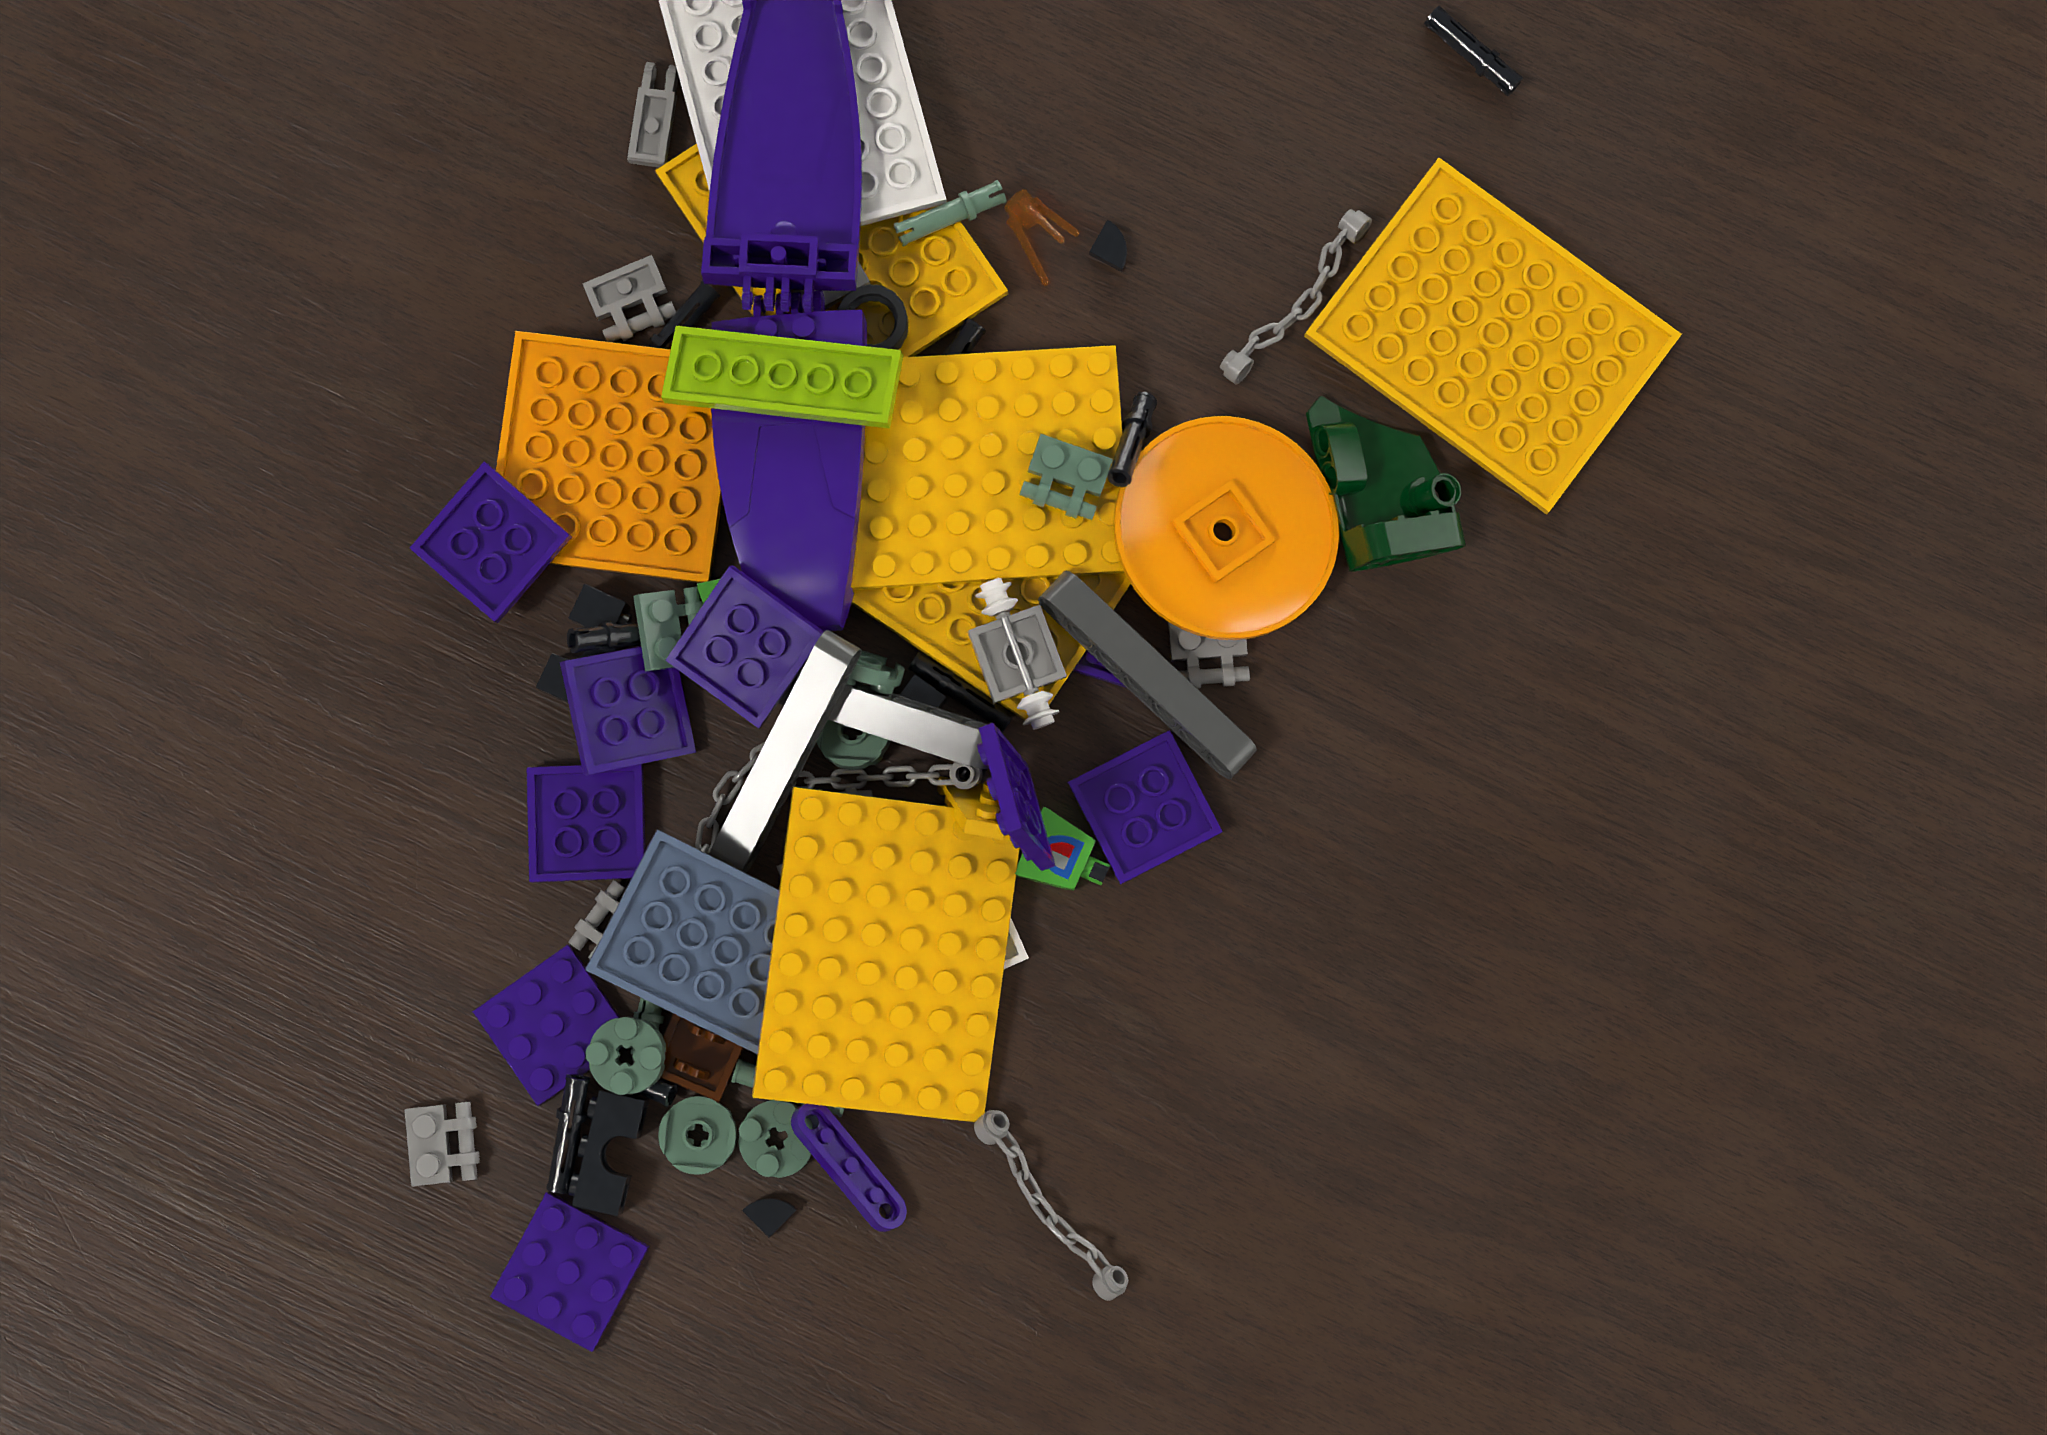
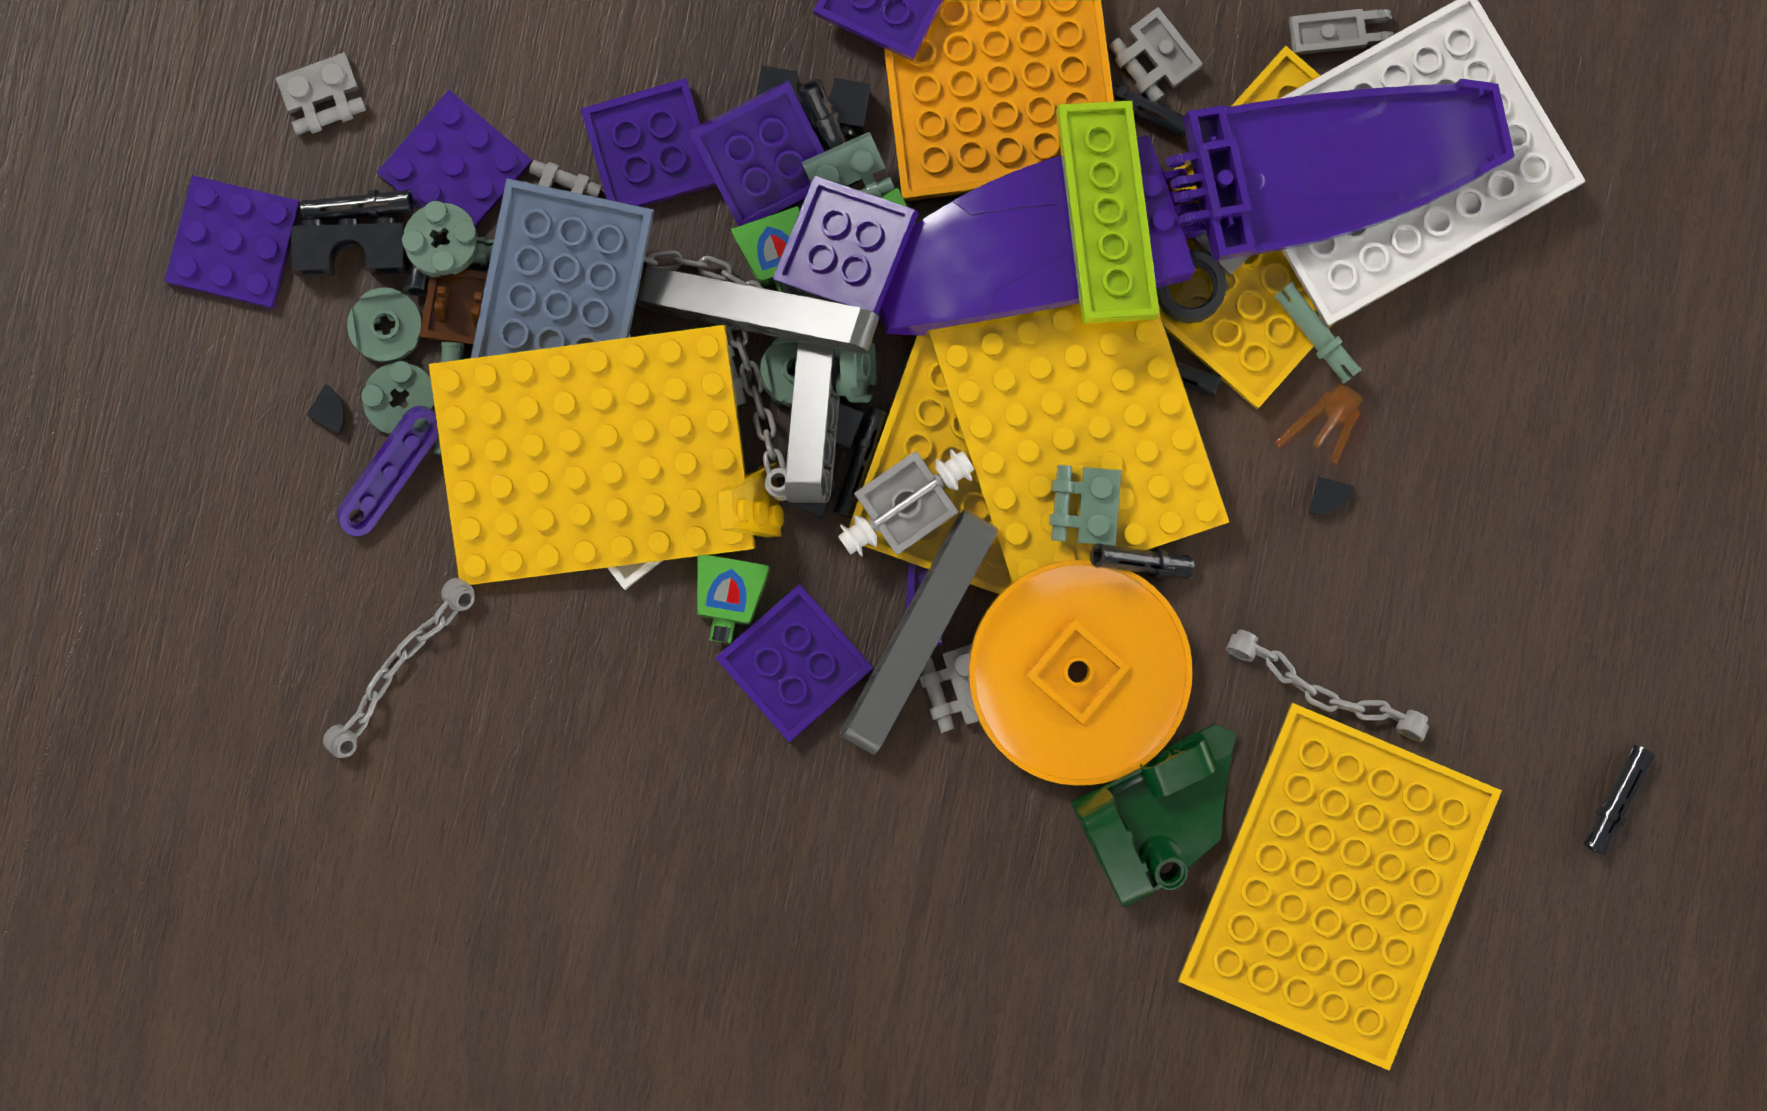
camera: 75 degrees right, 0 degrees up
(719, 729) = (763, 245): none -> bright green torso
(1016, 796) = (765, 532): dark purple plate -> none

